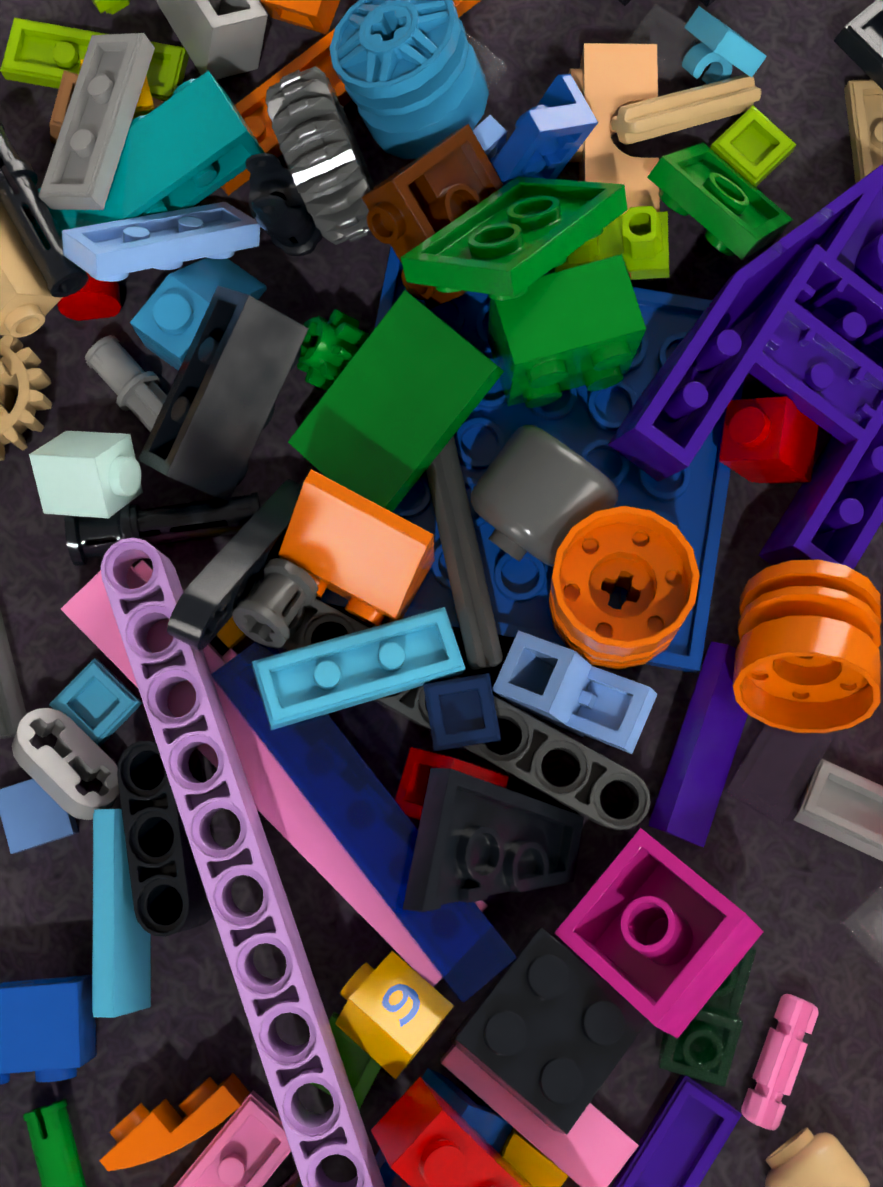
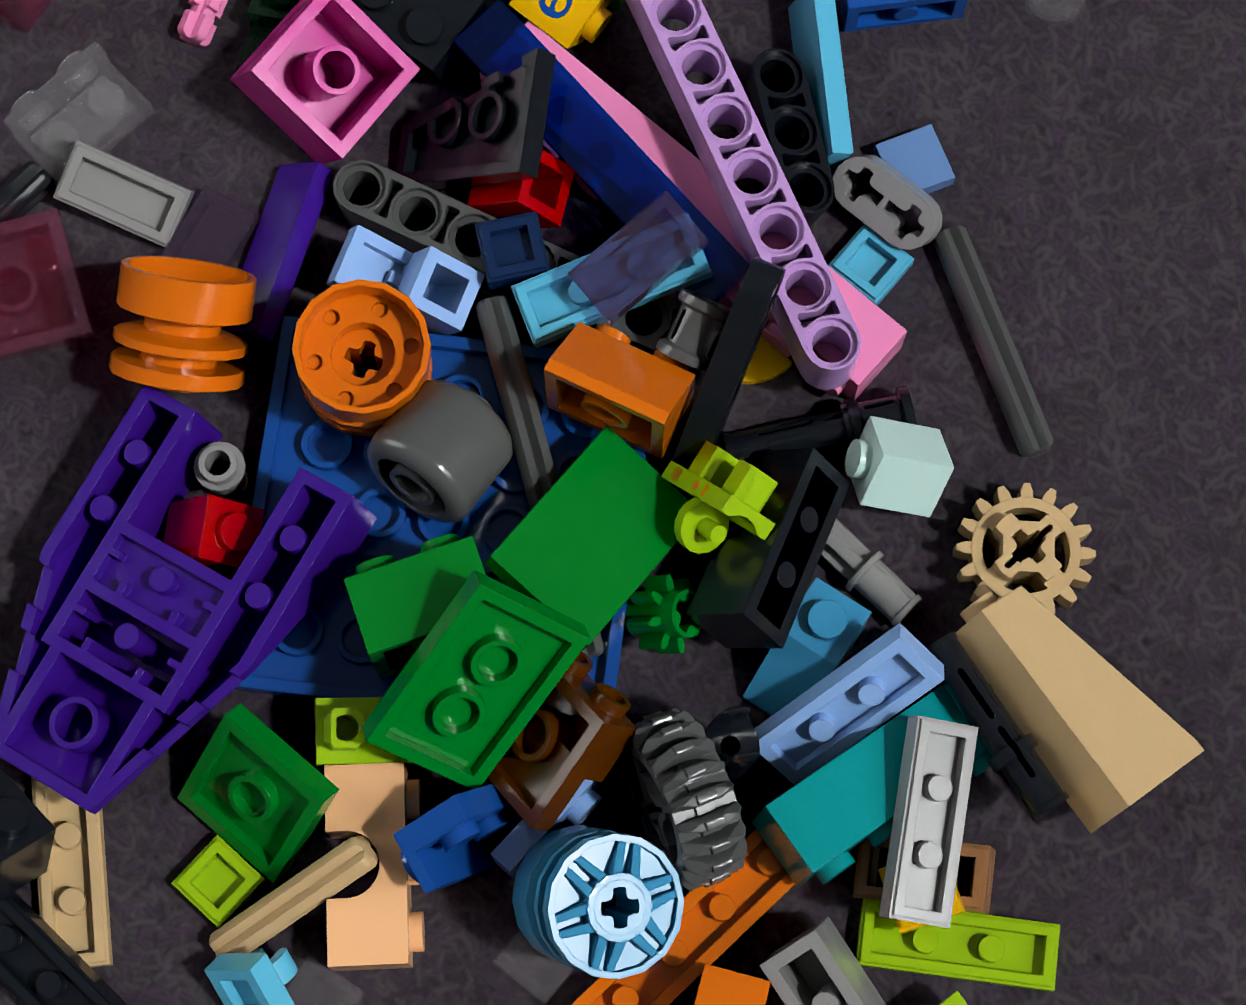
camera: 175 degrees right, 5 degrees down
(275, 427) = (721, 492): none -> lime hips
(327, 676) = (638, 257): none -> clear purple tile
(767, 497) = (223, 456): none -> light grey pin

